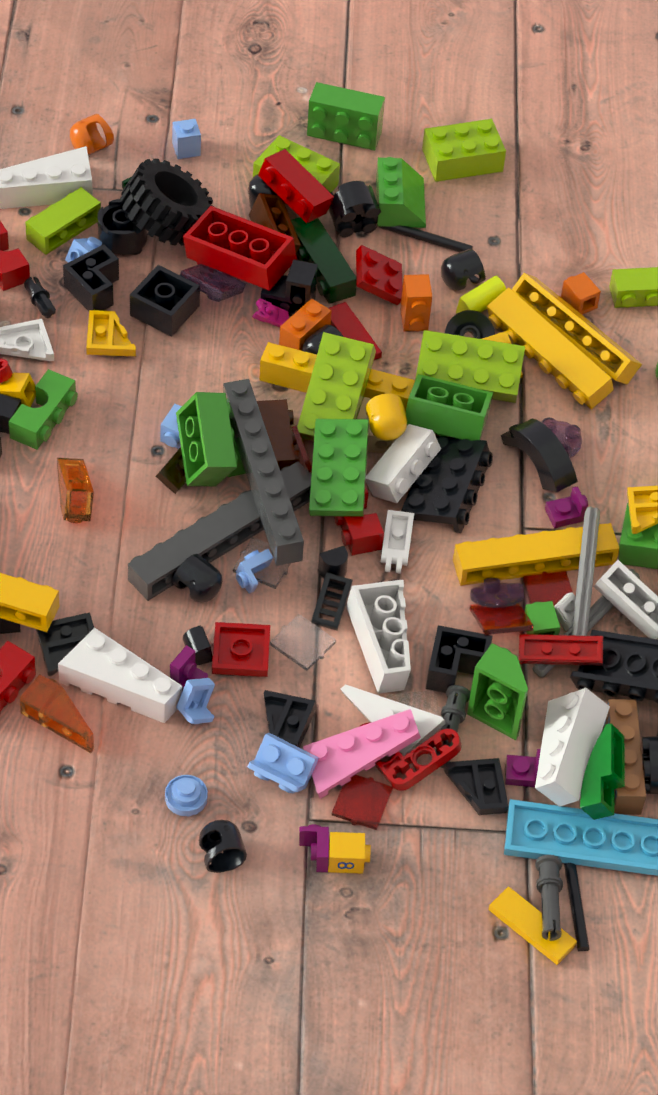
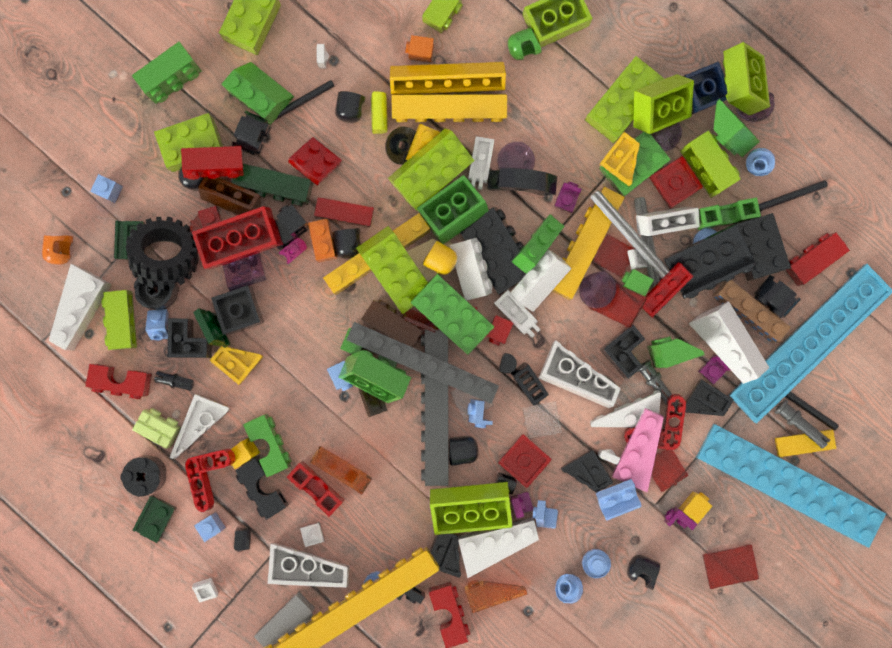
camera: 50 degrees left, 35 degrees up
(35, 474) = (323, 494): none -> red arch
(124, 284) = (211, 328): none -> dark green plate
(132, 783) = (569, 588): none -> light blue plate
(140, 617) = (470, 508): none -> lime brick
(309, 948) = (730, 566): none -> clear red piece
(322, 722) = (608, 455): none -> white tile
(416, 302) = (358, 160): orange brick -> none
(453, 525) = (540, 280): none -> white brick
(469, 950) = (790, 485): none -> medium azure plate
(471, 491) = (538, 244): none -> bright green arch
(487, 223) = (322, 56): none -> white tile
(534, 405) = (482, 155): none -> white hinge
(604, 774) = (766, 341): green slope -> none

